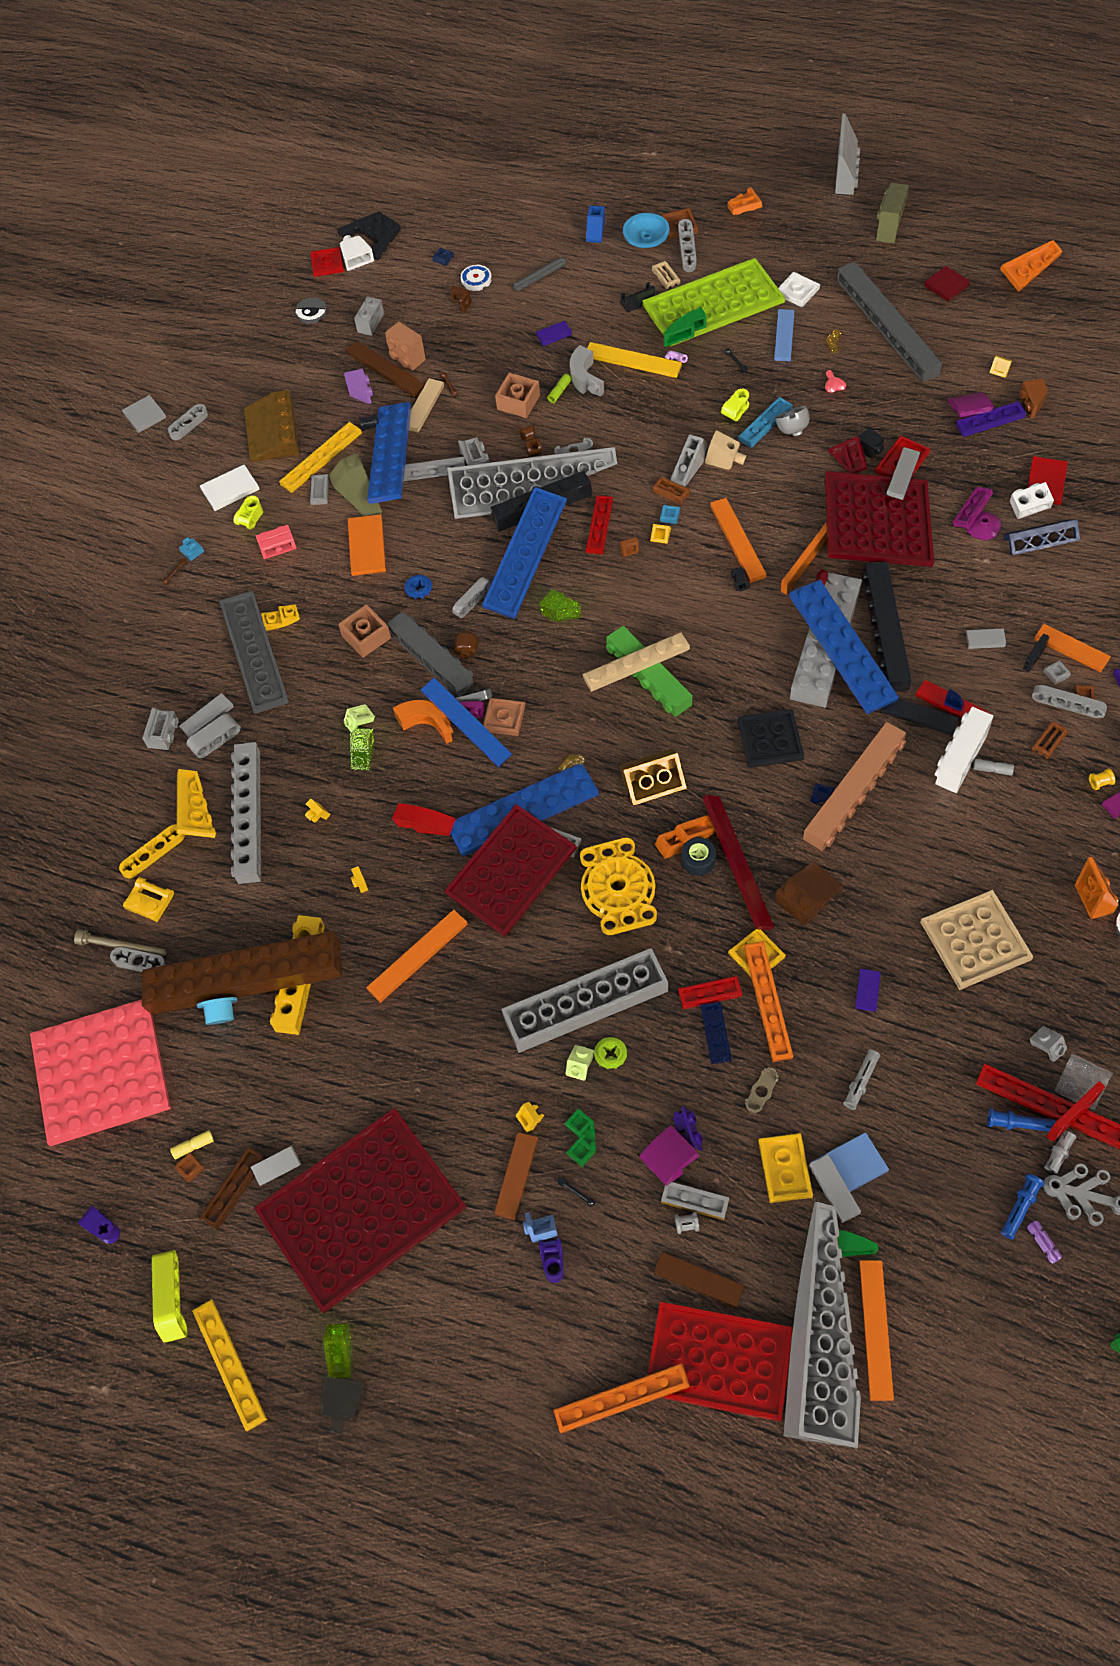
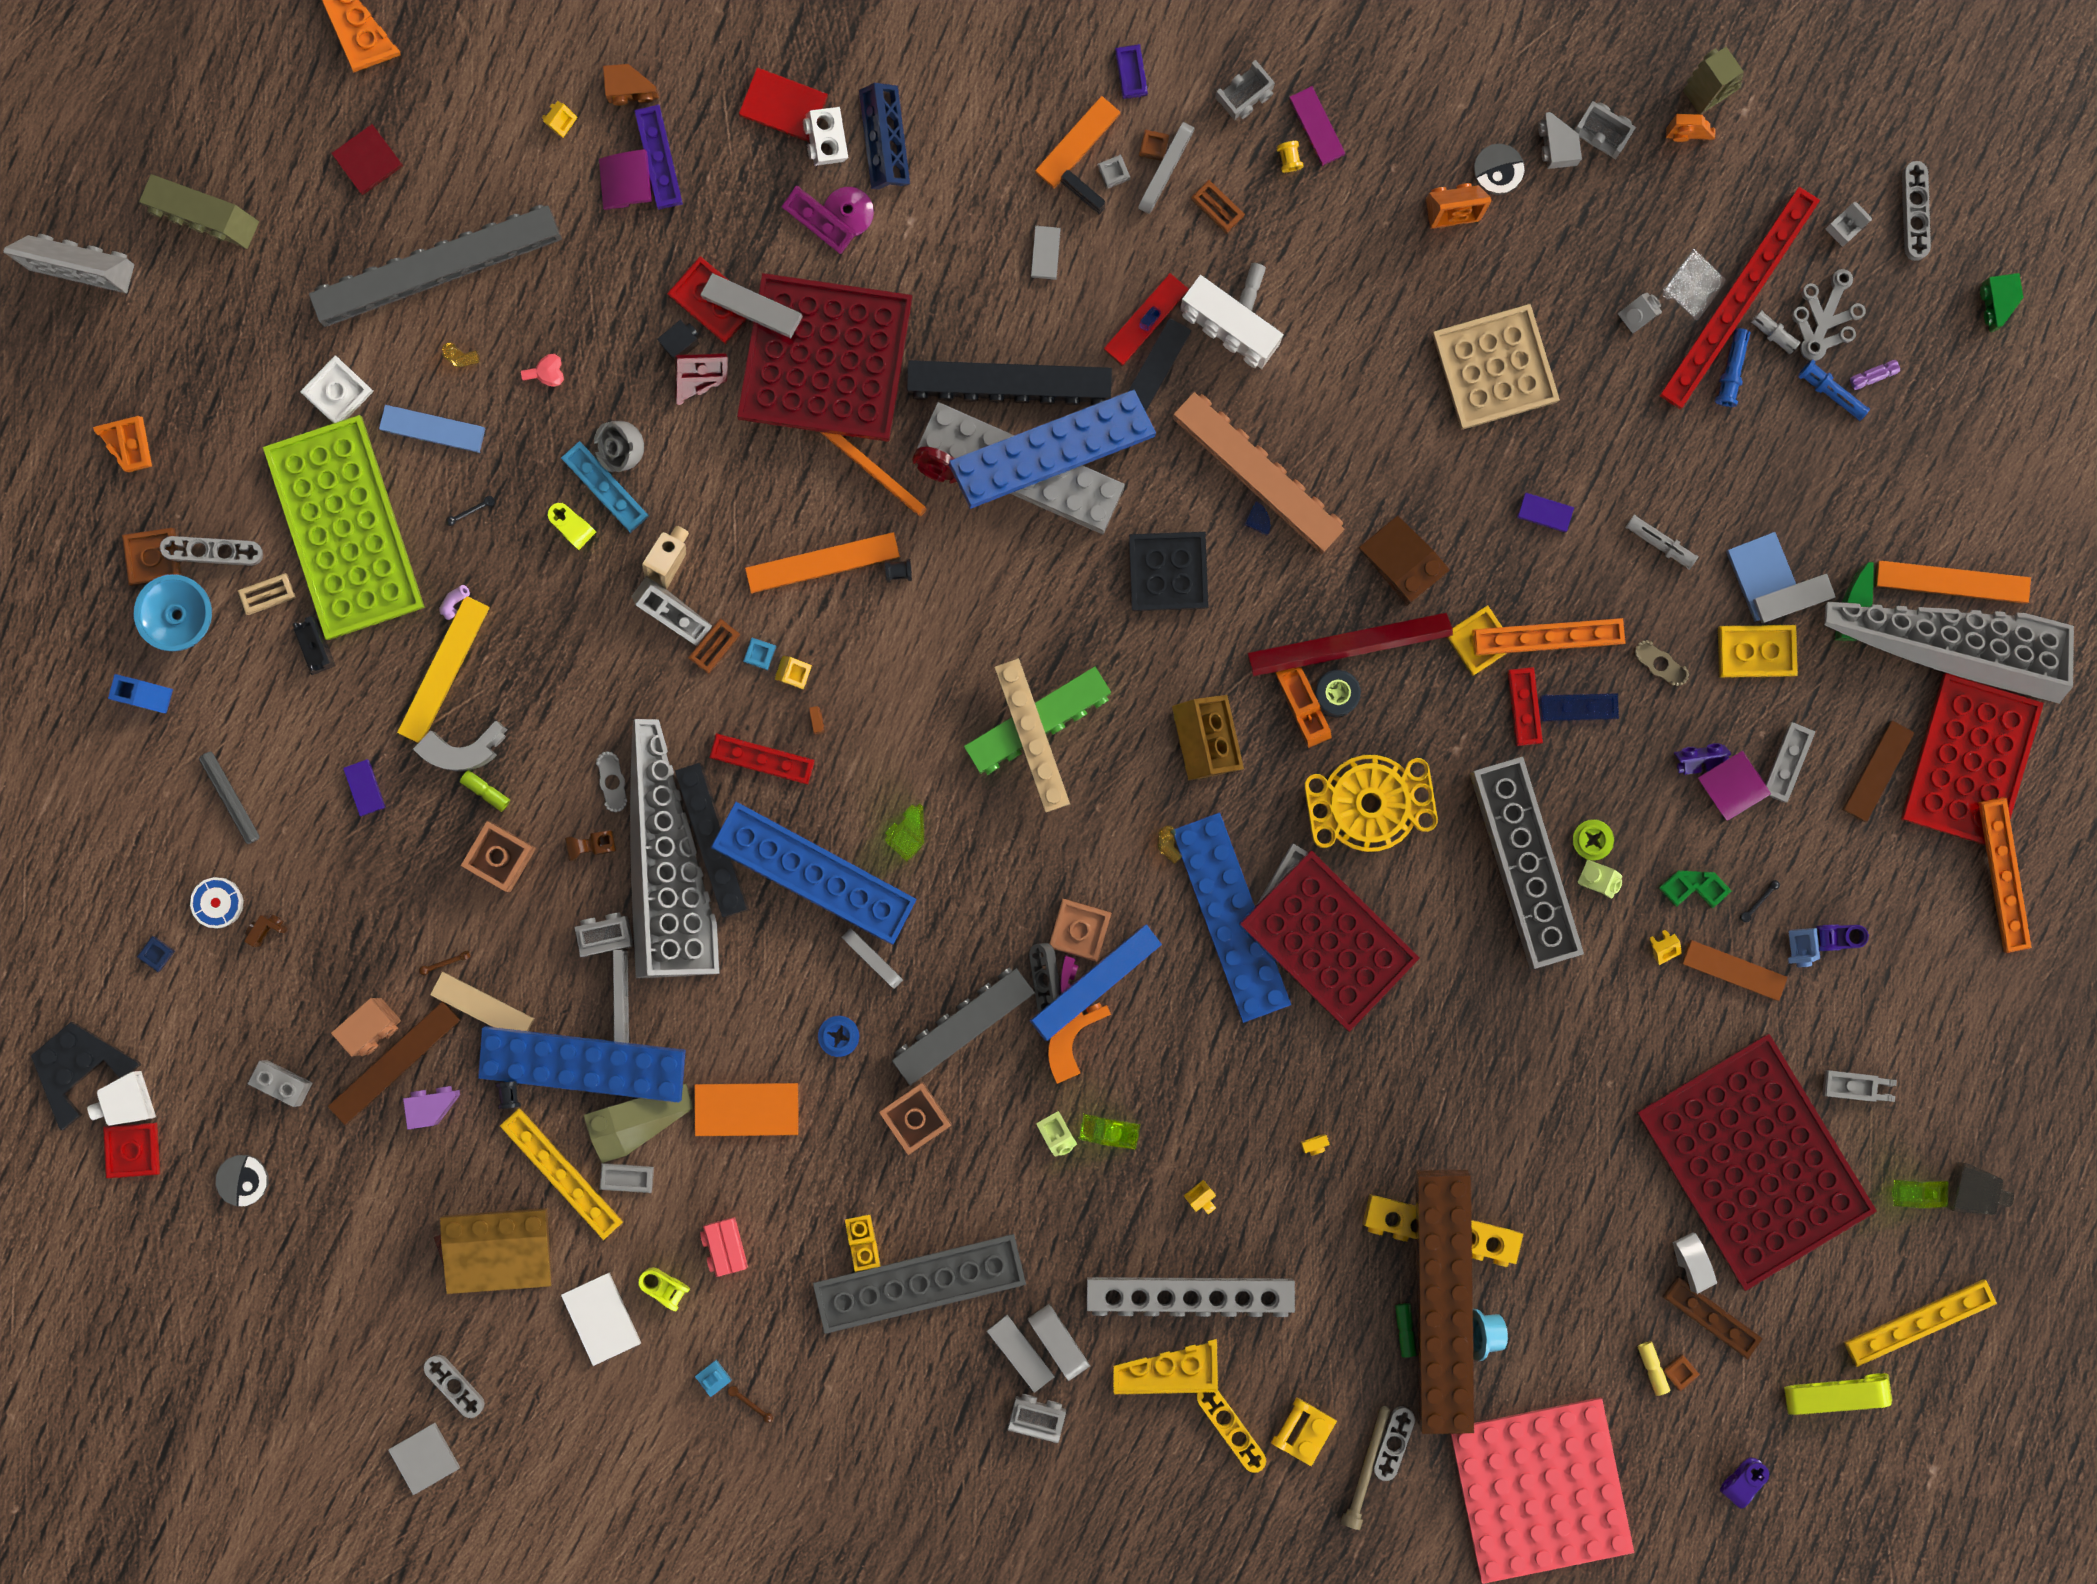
camera: 95 degrees left, 25 degrees up
(417, 956) = (1430, 1073): orange tile -> none
(423, 819) = (1237, 1051): red slope -> none
(427, 1286) = (1855, 1086): none -> light grey hinge
(466, 644) = (957, 973): reddish brown head -> none
(685, 327) = (405, 578): green slope -> none
(694, 1225) = (1814, 775): light grey bush -> none
(1075, 1111) = (1745, 304): red tile -> none

